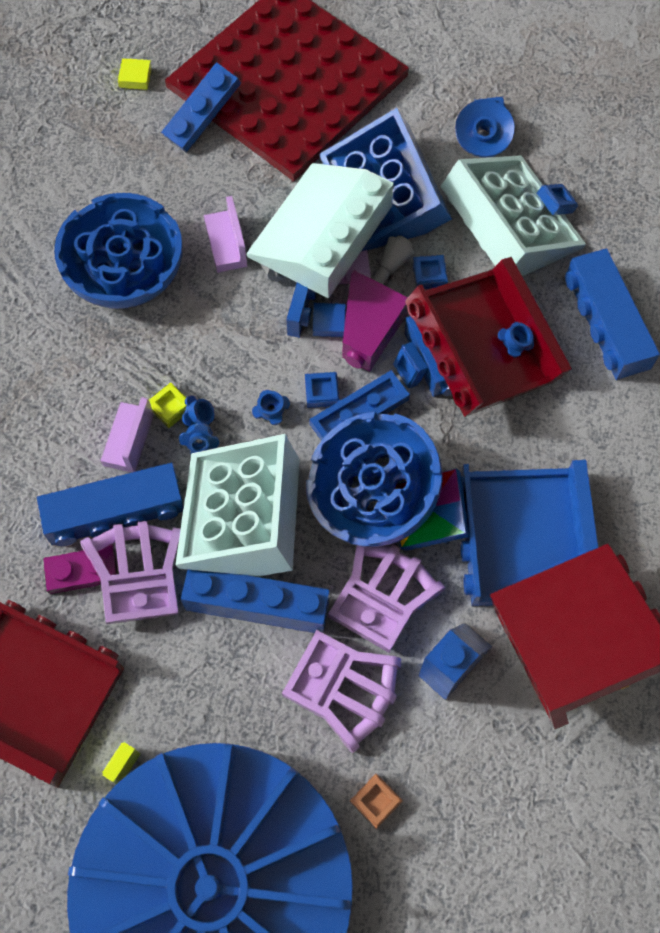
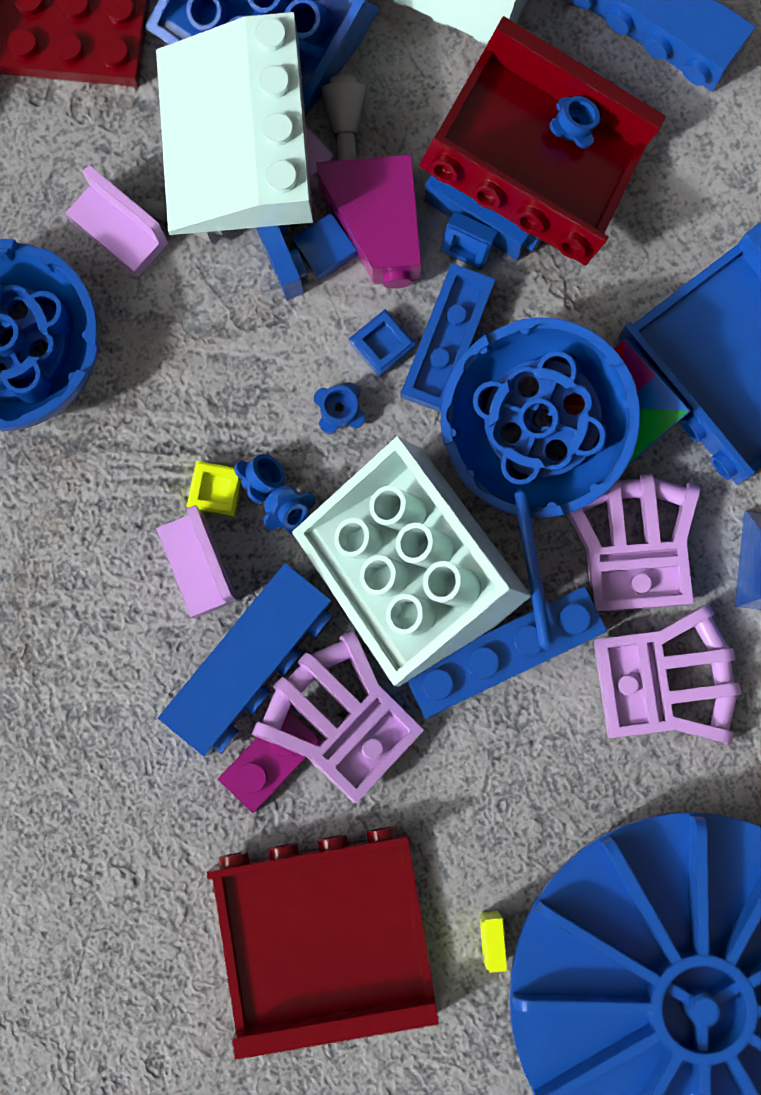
camera: 30 degrees left, 15 degrees up
(307, 554) = (533, 569): none -> blue axle
(430, 271) = (399, 98): blue tile -> none

